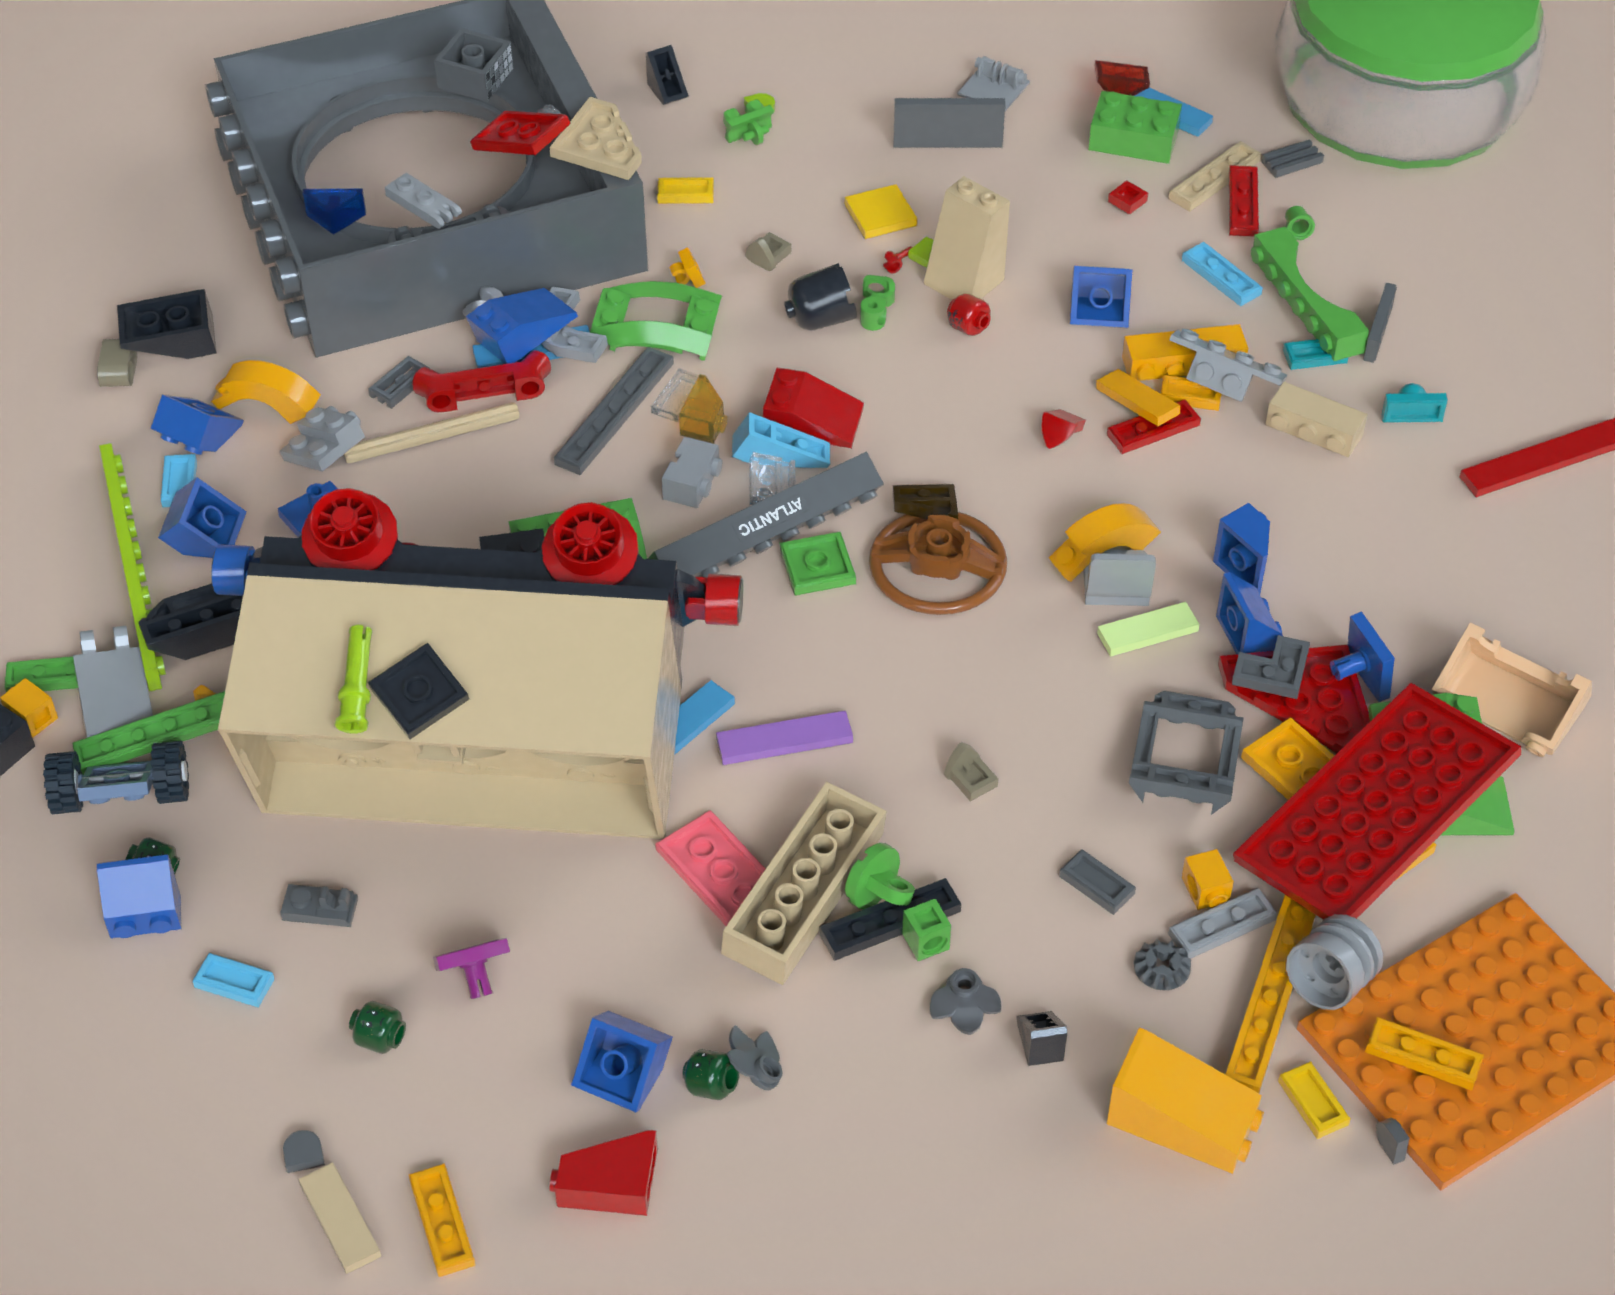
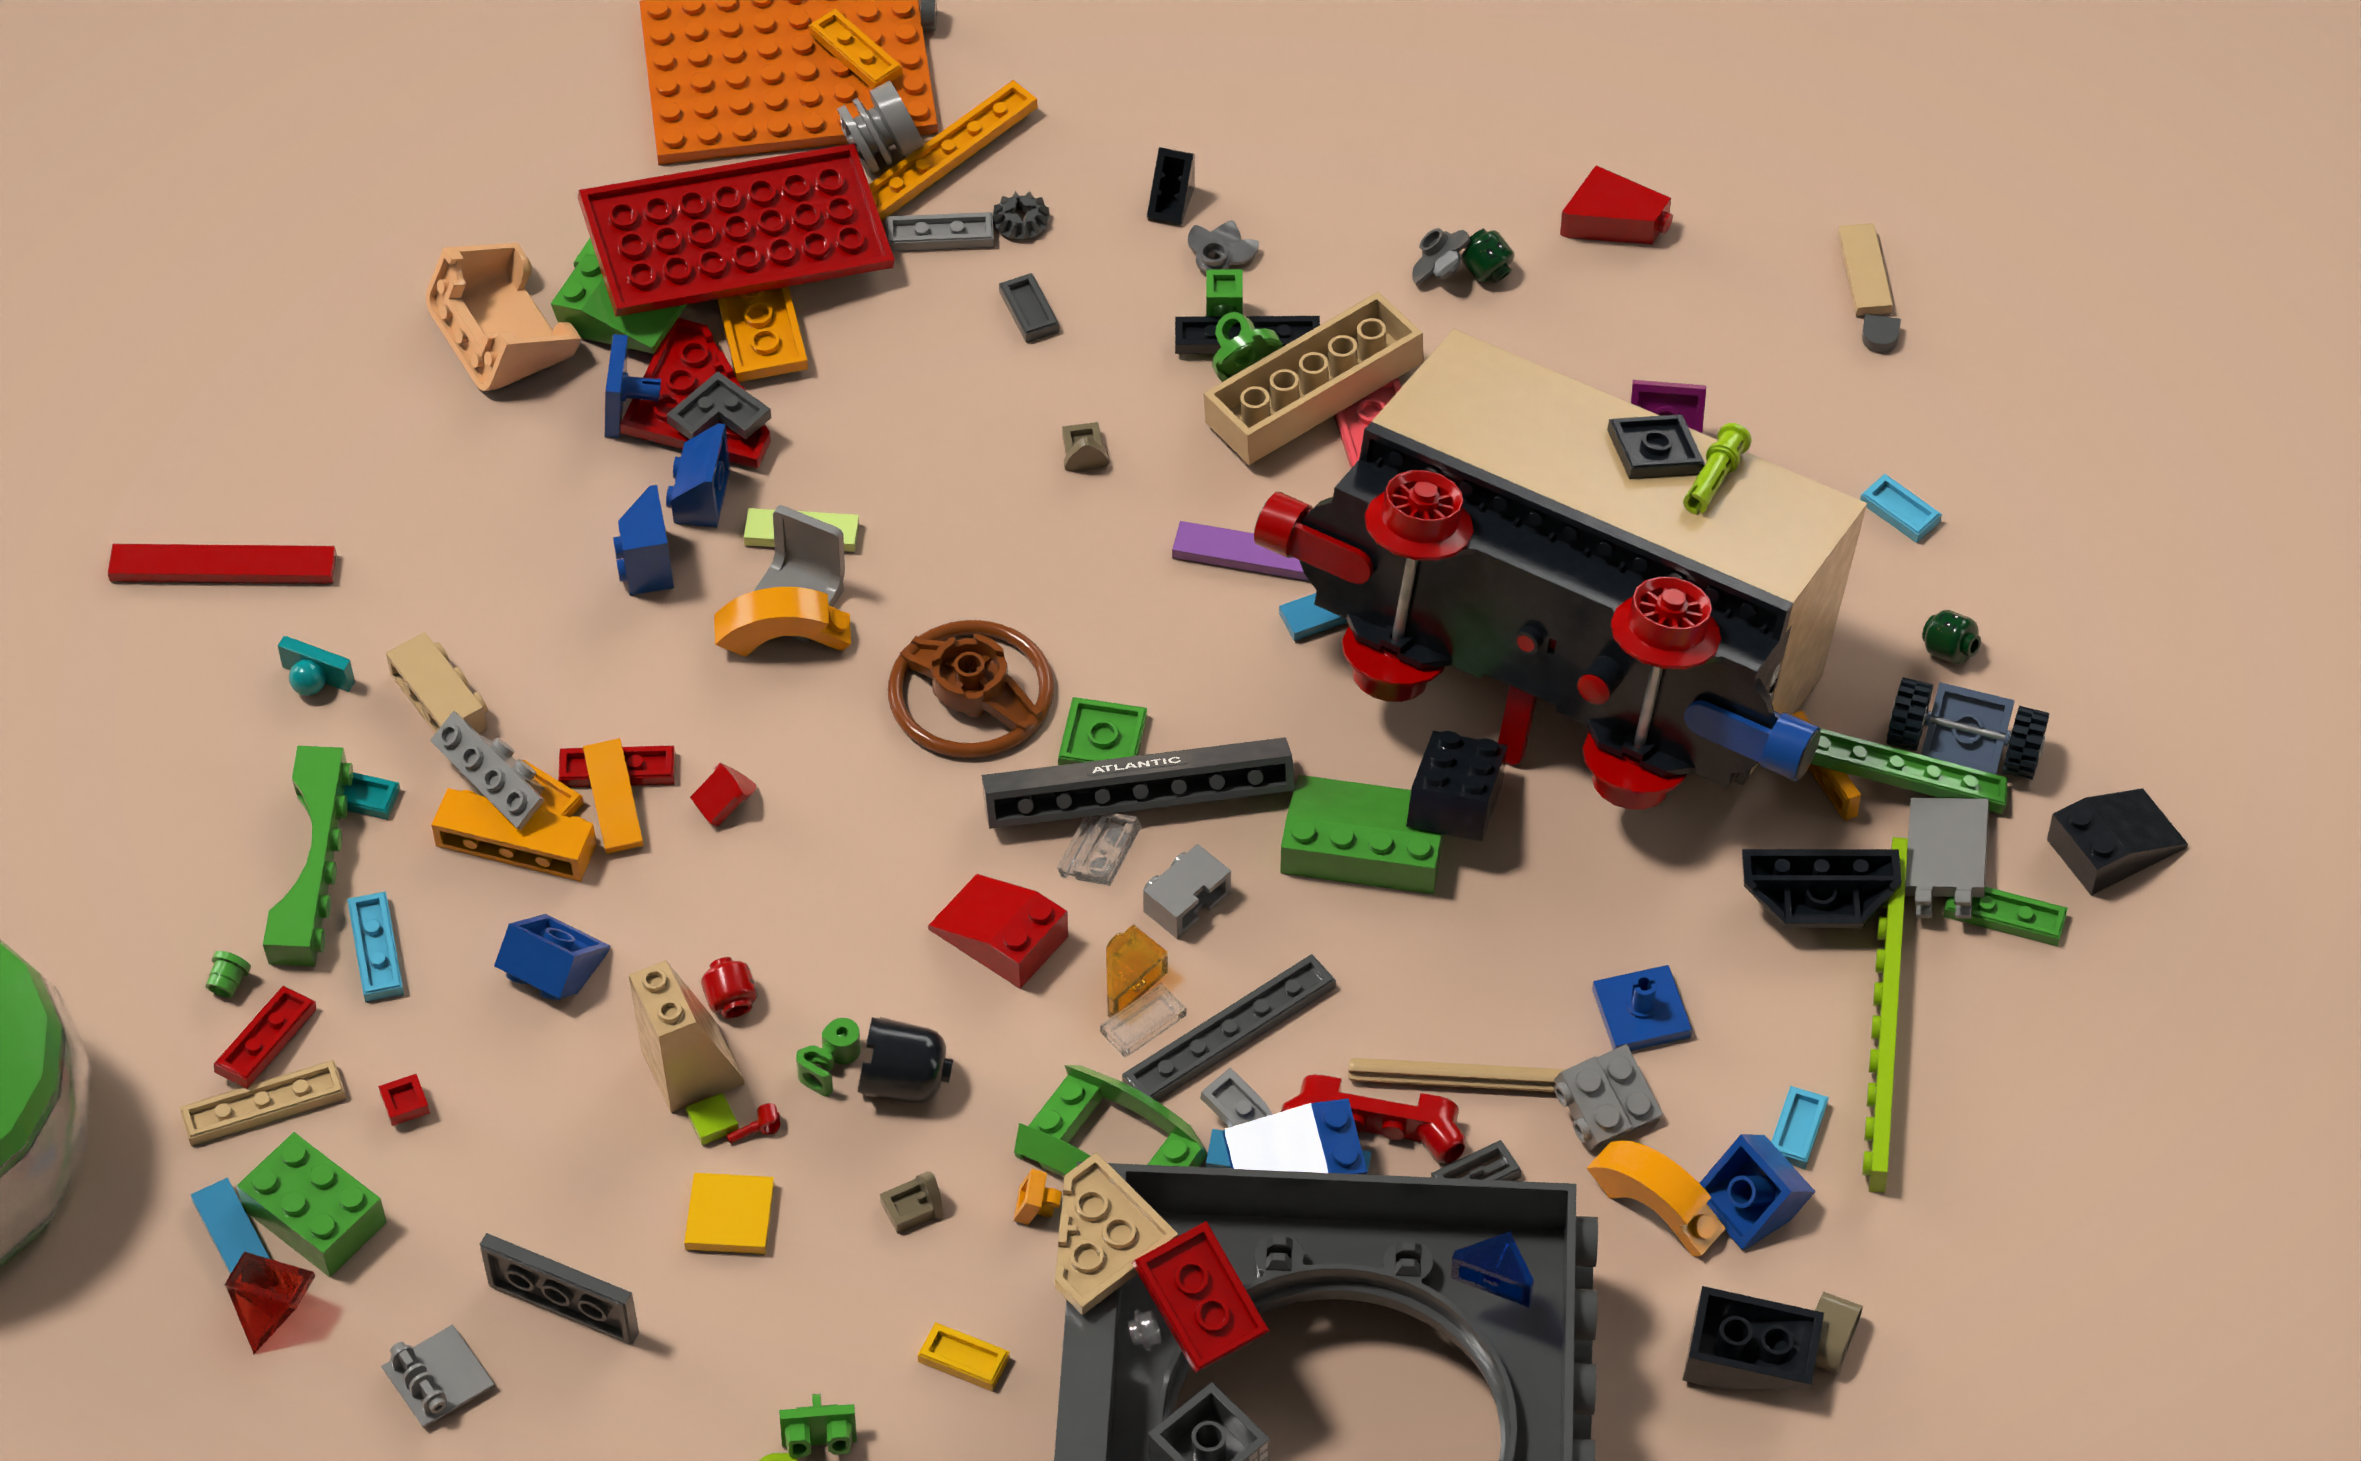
camera: 155 degrees left, 5 degrees up
(31, 705) = (2045, 864): light orange brick -> none
(139, 896) = (1975, 594): slope -> none
(201, 520) = (1790, 1036): blue slope -> none
(377, 1027) = (1777, 401): dark green head -> none
(422, 200) = (1373, 1256): light grey hinge -> none
(441, 1220) = (1775, 239): light orange tile -> none
(621, 1060) = (1558, 298): blue slope -> none
(778, 440) = (1080, 886): medium azure slope -> none
(925, 500) = (941, 749): dark brown wing -> none
(1179, 782) = (886, 333): dark grey wedge -> none
(1183, 1104) = (1093, 87): light orange slope -> none
(1207, 879) = (930, 260): light orange brick -> none
(1295, 156) = (144, 1083): dark grey tile -> none
(1314, 1100) = (968, 70): yellow tile -> none
(1380, 322) = (252, 790): dark grey tile -> none

